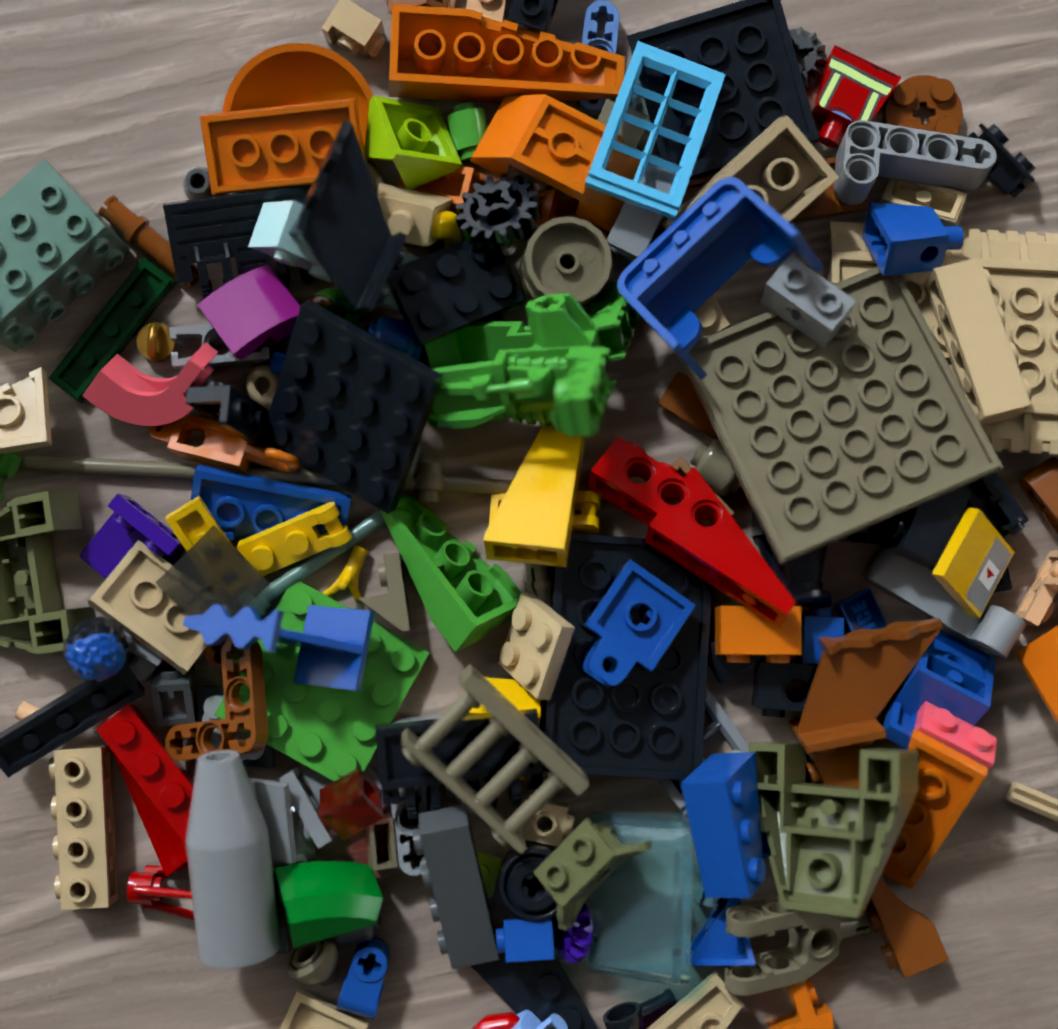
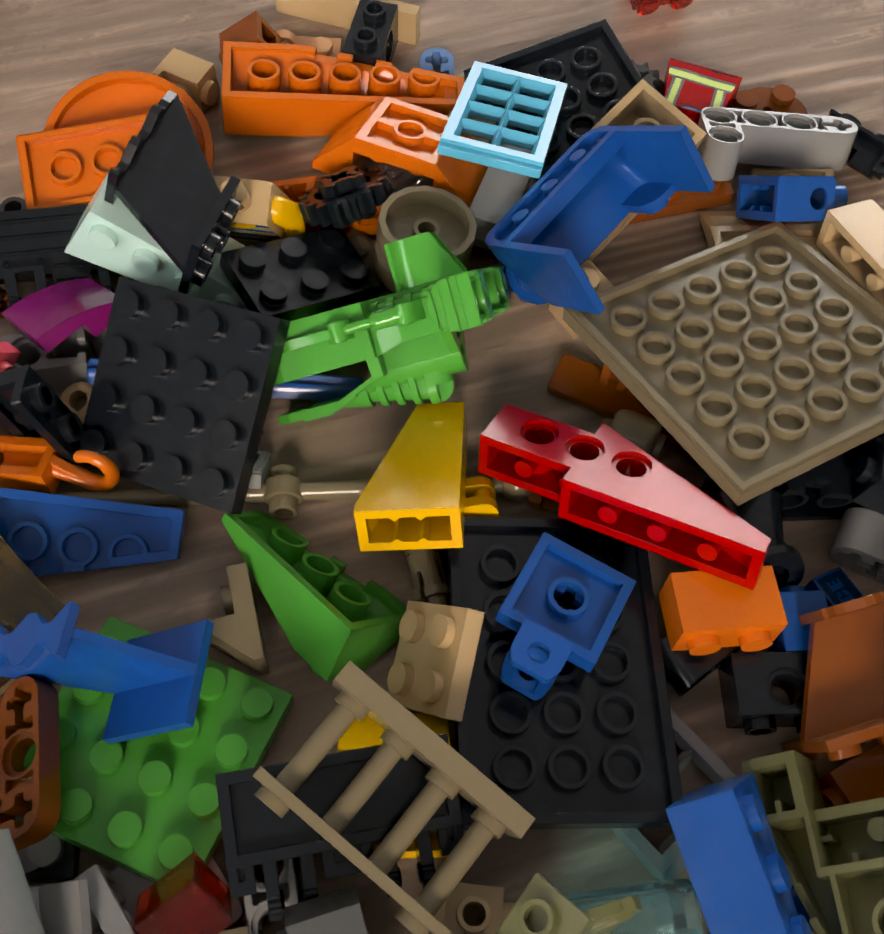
camera: 10 degrees left, 25 degrees down
(294, 539) = (113, 563): yellow plate -> none
(314, 563) = (159, 581): sand green piece -> none
(350, 574) = (186, 606): yellow bar -> none
(411, 138) = (245, 155): lime slope -> none
(467, 129) = (303, 147): bright green brick -> none
(807, 301) = (700, 242): light grey brick -> none

